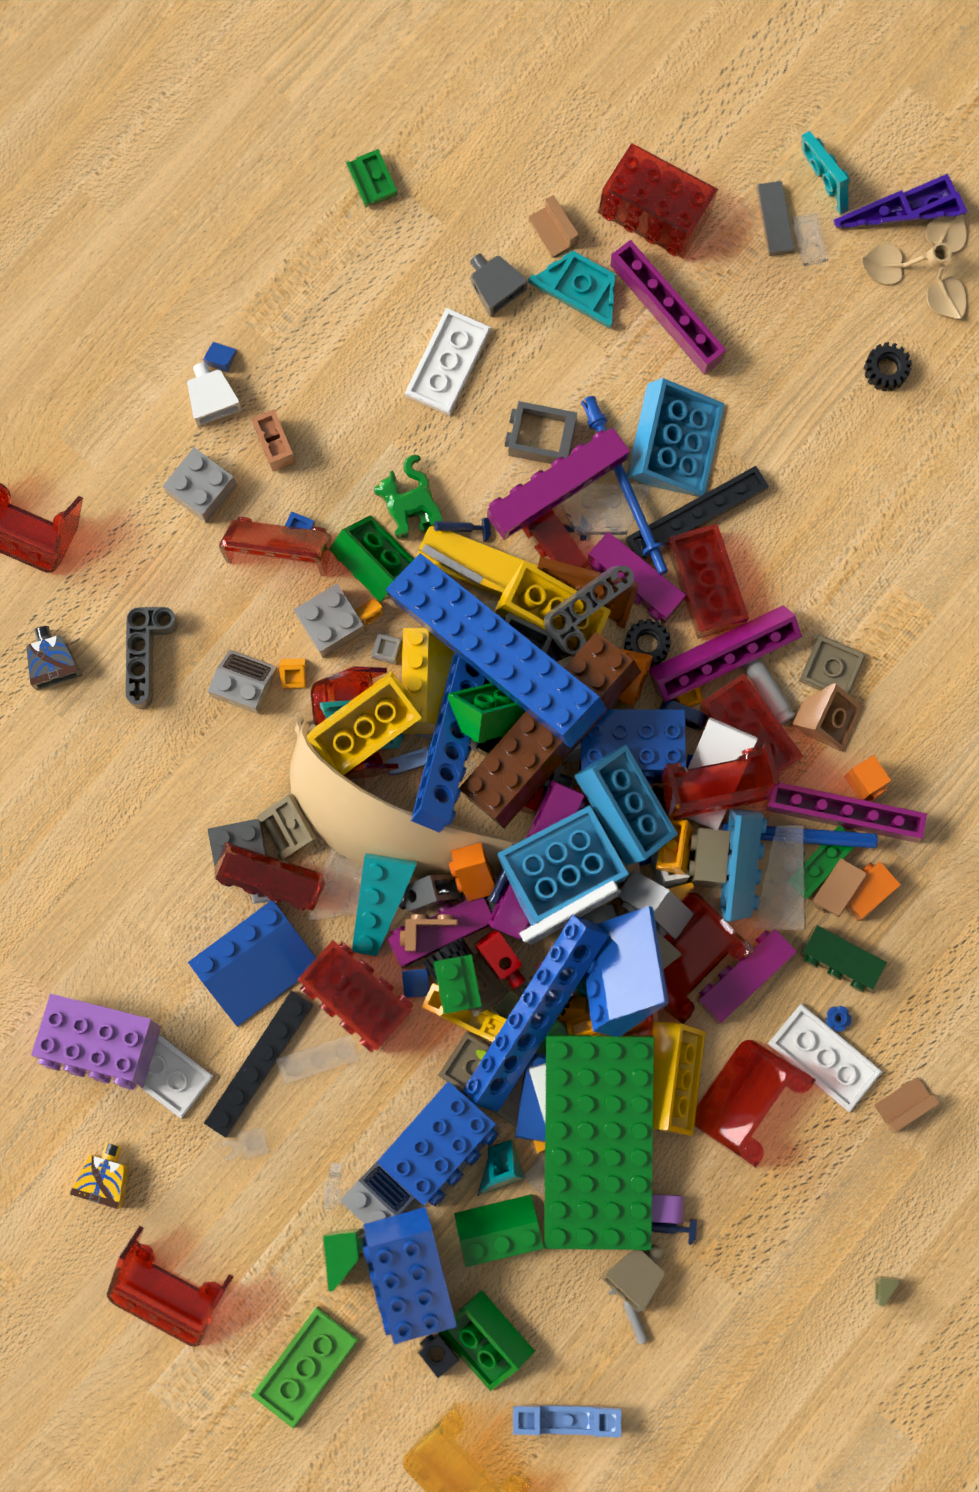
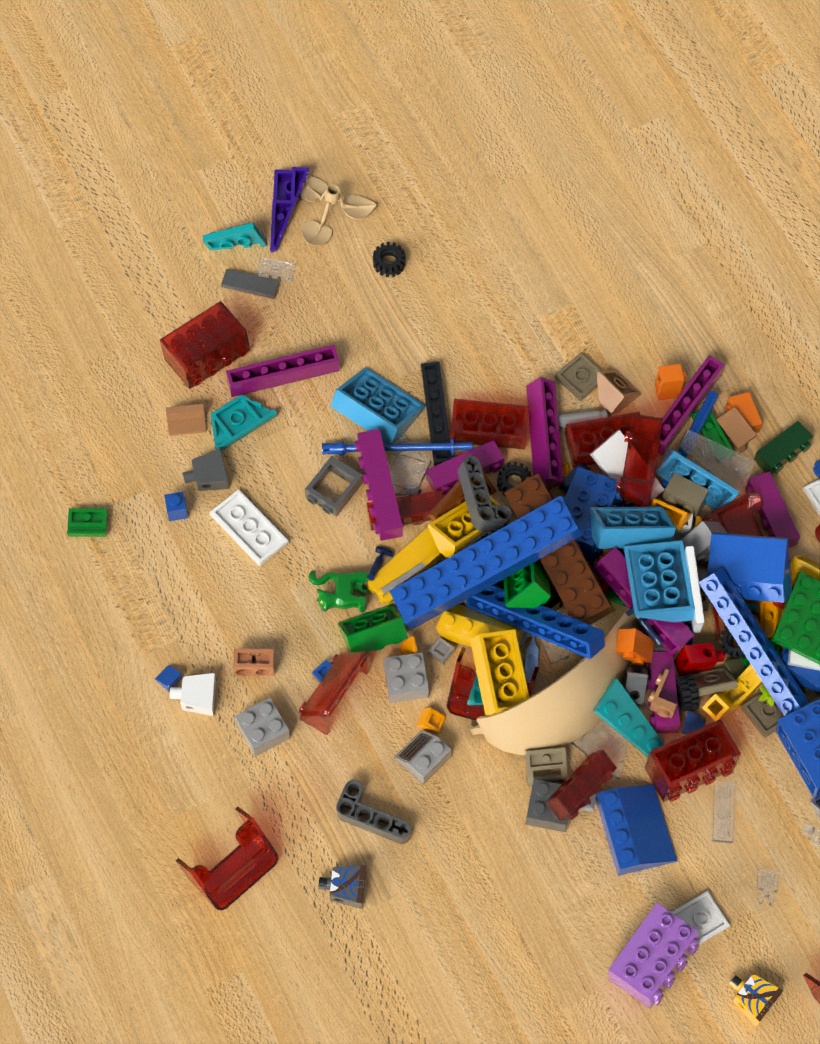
camera: 70 degrees left, 15 degrees down
(258, 1064) = (710, 856): black plate -> none
(434, 266) = (176, 506): none -> blue brick
(457, 984) = (711, 686): green plate -> none

